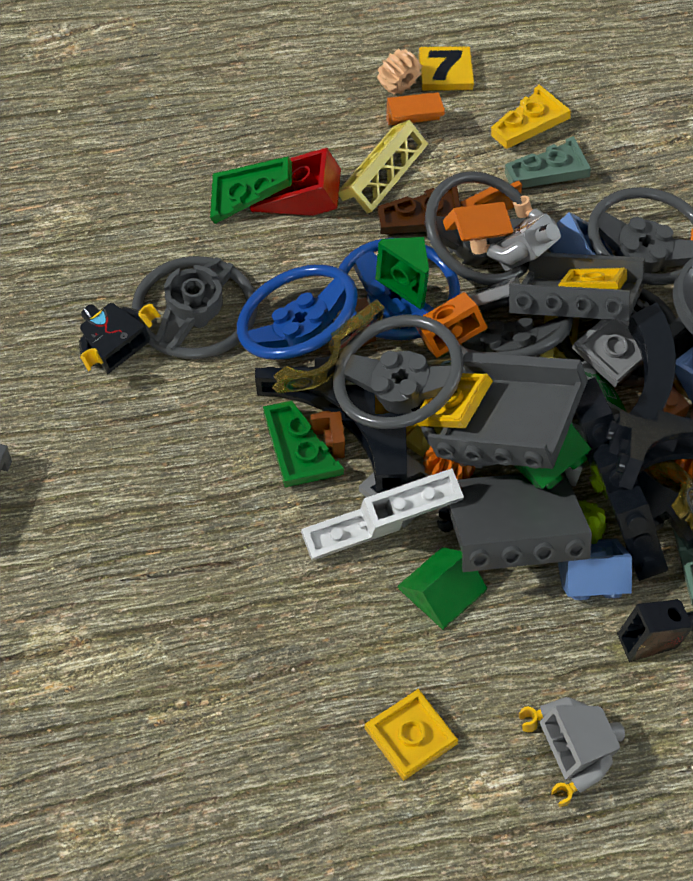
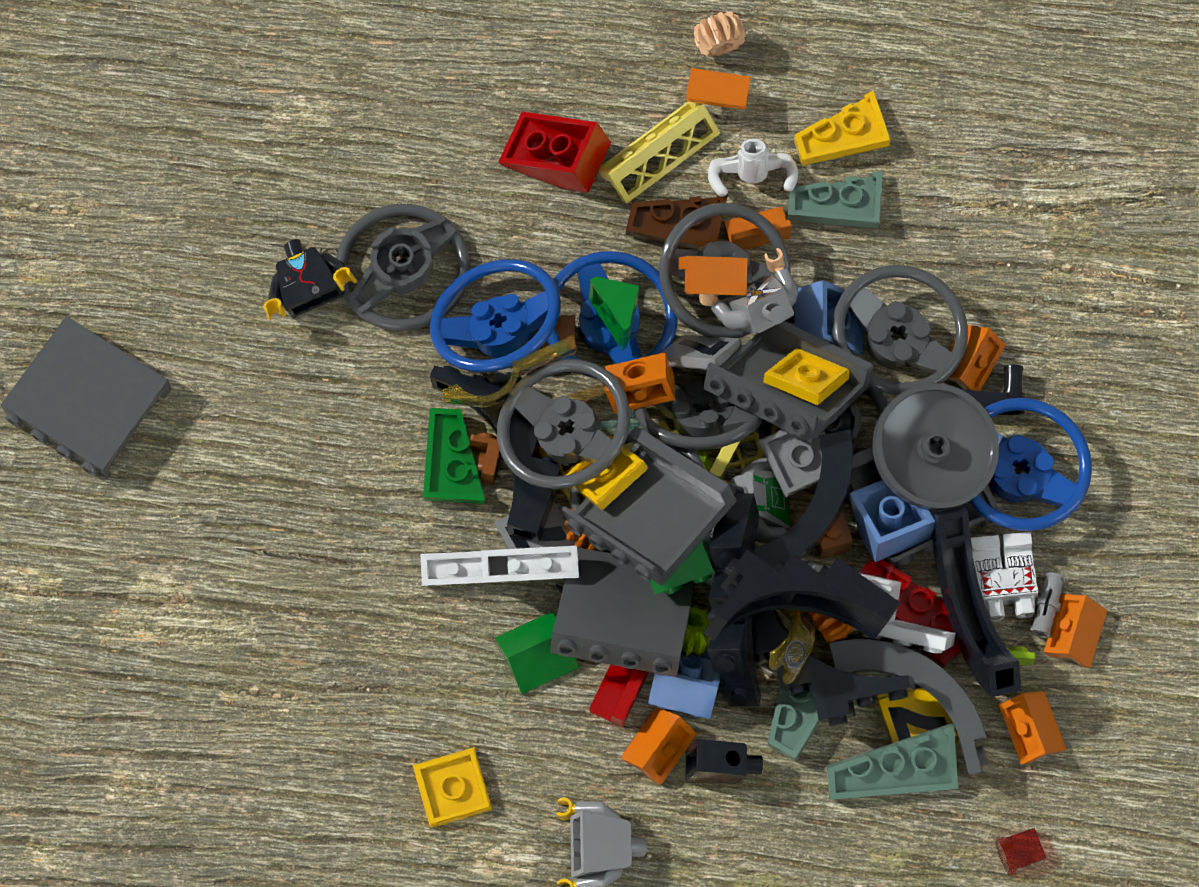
camera: 20 degrees right, 15 degrees up
(247, 185) = (501, 138): green wing -> none
(446, 68) = (779, 36): yellow tile -> none
(466, 154) = (752, 166): none -> white piece
(534, 597) = (618, 694): none -> red panel
(592, 632) = (659, 744): none -> orange panel

